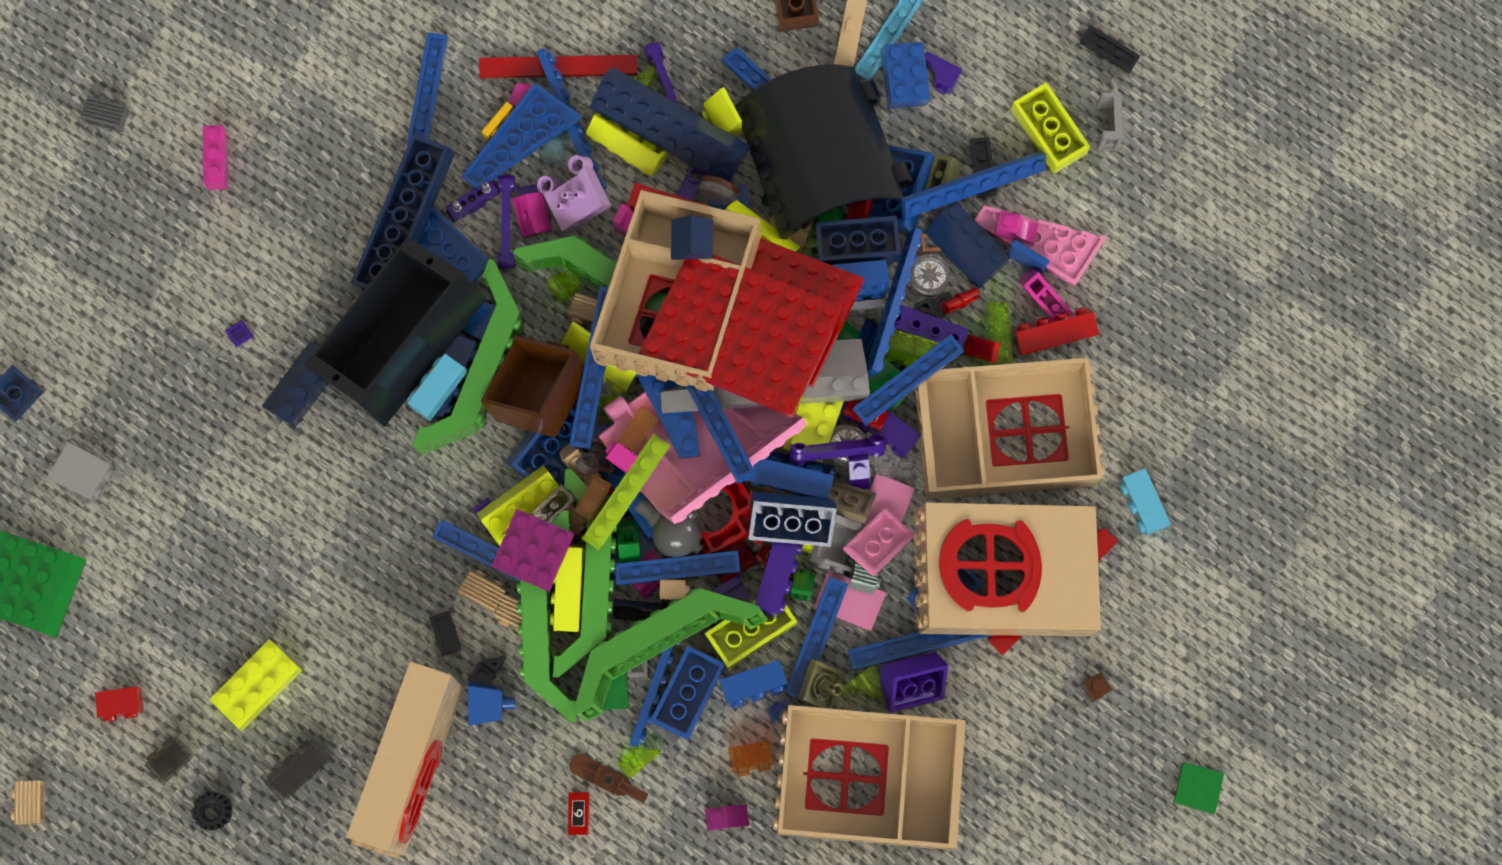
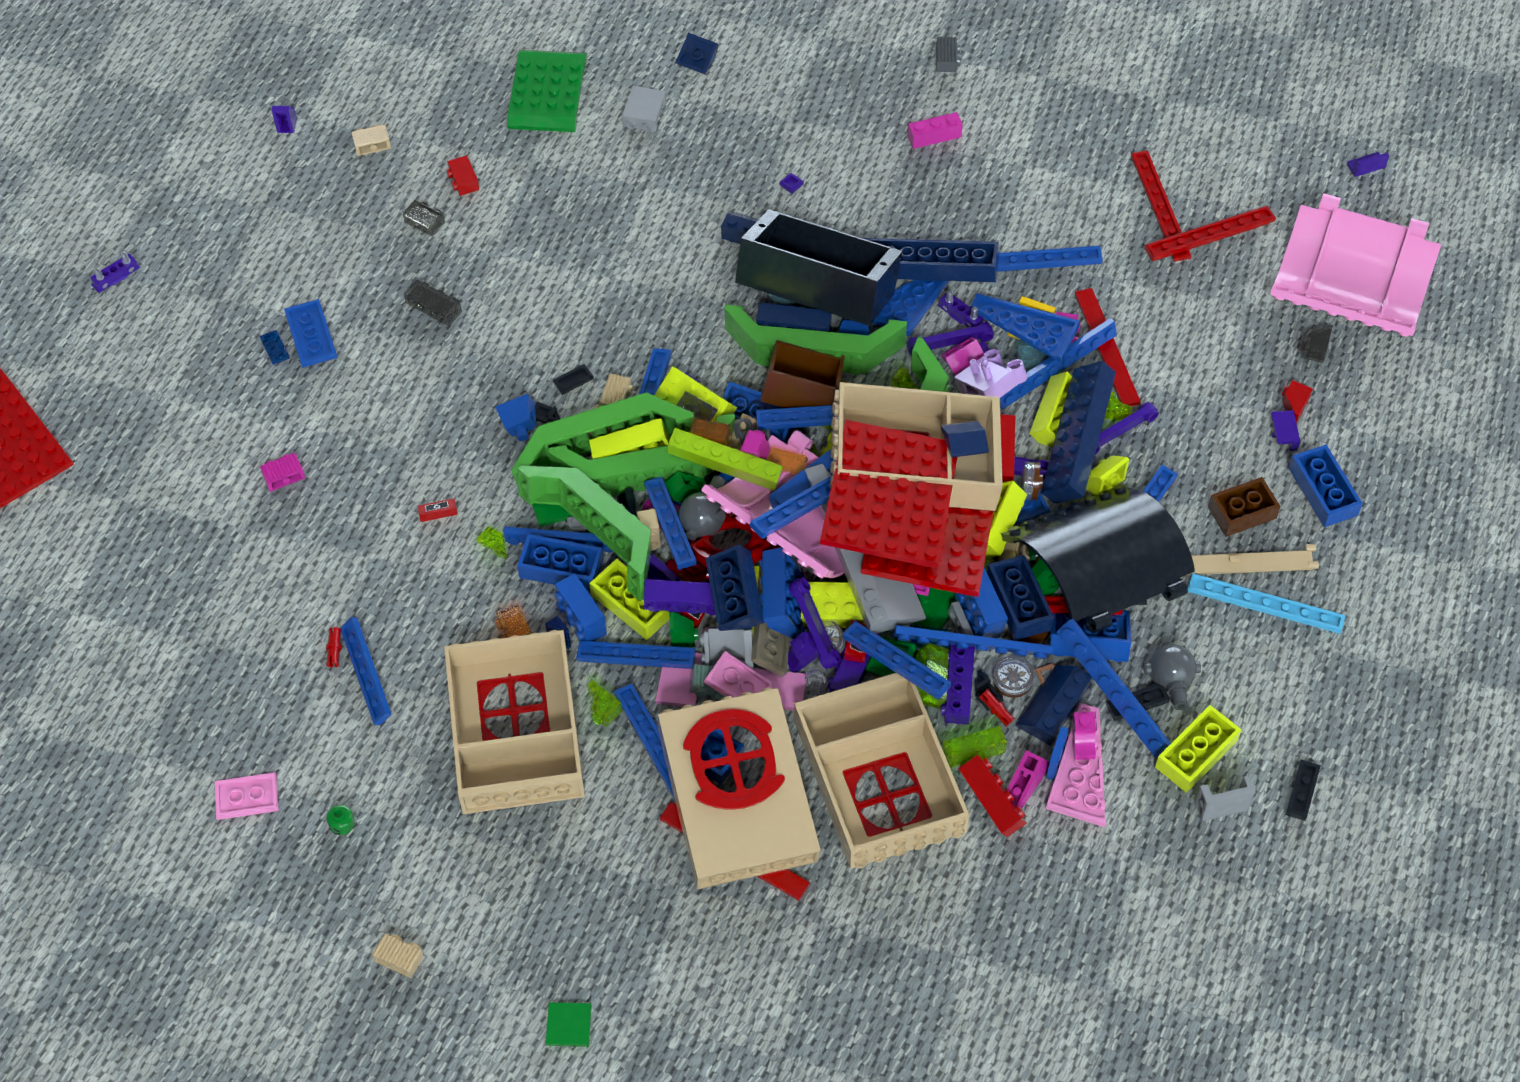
camera: 80 degrees right, 20 degrees down
(199, 811) = (387, 263): black tyre -> none
(255, 685) = (497, 258): neon yellow brick -> none
(406, 761) = (481, 341): tan panel -> none
(436, 387) = (778, 306): medium azure brick -> none
(532, 550) = (652, 399): magenta plate -> none
(596, 773) = (476, 514): reddish brown piece -> none
(726, 817) = (455, 618): magenta slope -> none
(821, 685) = (592, 664): olive plate -> none
(905, 75) = (1203, 612): blue brick -> none
(913, 681) = (613, 739): dark purple slope -> none
(943, 170) = (1121, 662): olive brick -> none
(944, 73) = (1217, 648): dark purple arch -> none
(958, 124) = (1174, 669): none -> dark grey piece
(982, 348) = (953, 731): red tile -> none
(1096, 687) = (646, 904): reddish brown brick -> none
(1144, 502) = (844, 913): medium azure brick -> none

